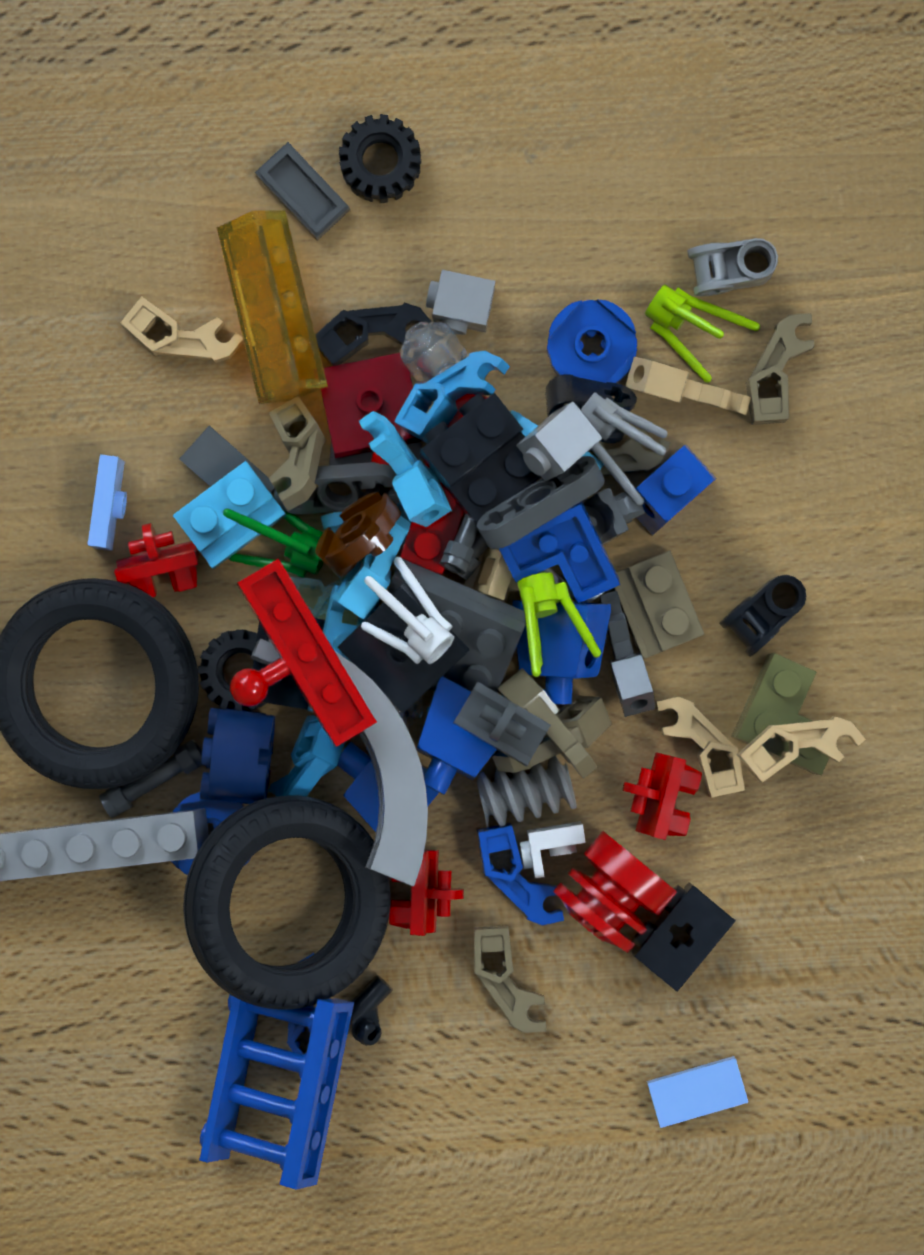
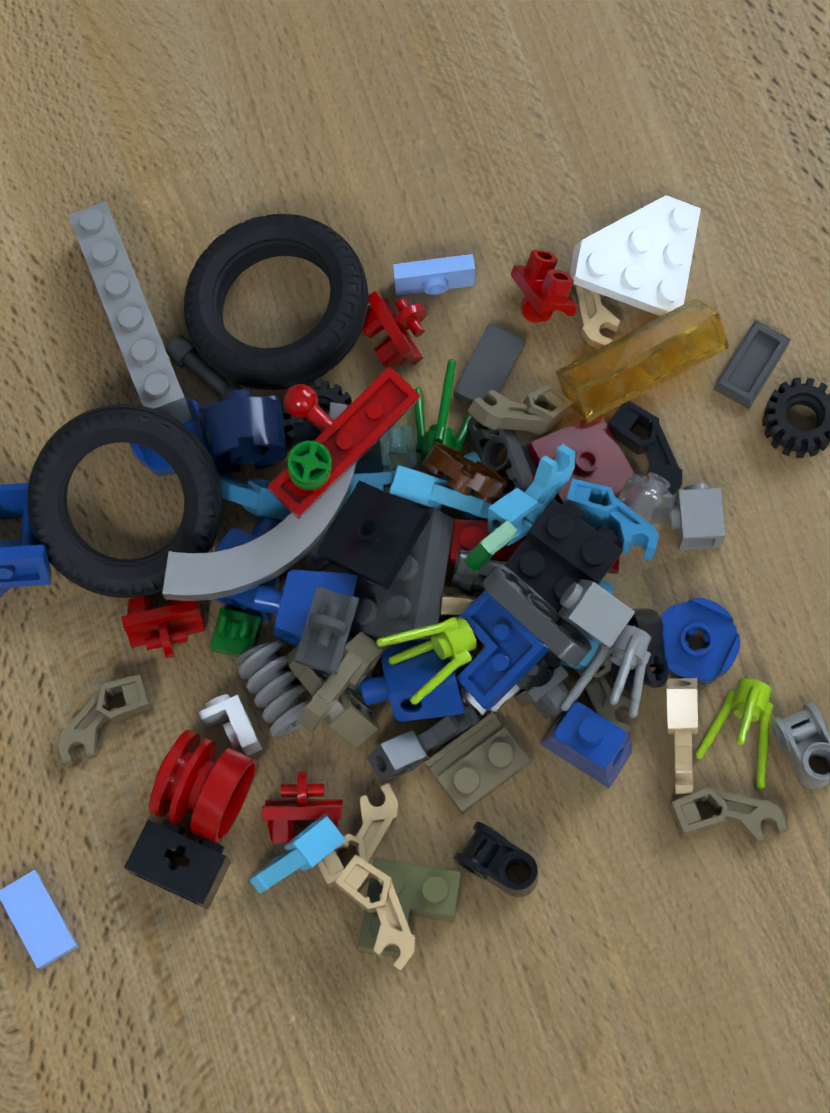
camera: 75 degrees right, 15 degrees down
(150, 271) = (641, 256): none -> white plate
(163, 388) = (543, 287): none -> red hips
(213, 532) = (471, 377): medium azure plate -> none
(335, 690) = (311, 456): none -> green wheel
(365, 1018) = (46, 603): black arm -> none
(427, 636) = (386, 540): white plant -> none
(453, 528) = (490, 545): none -> tile
(453, 819) = (235, 632): none -> green tile
(524, 894) = (189, 700): blue piece -> none
(710, 805) = (302, 852): none -> medium azure piece

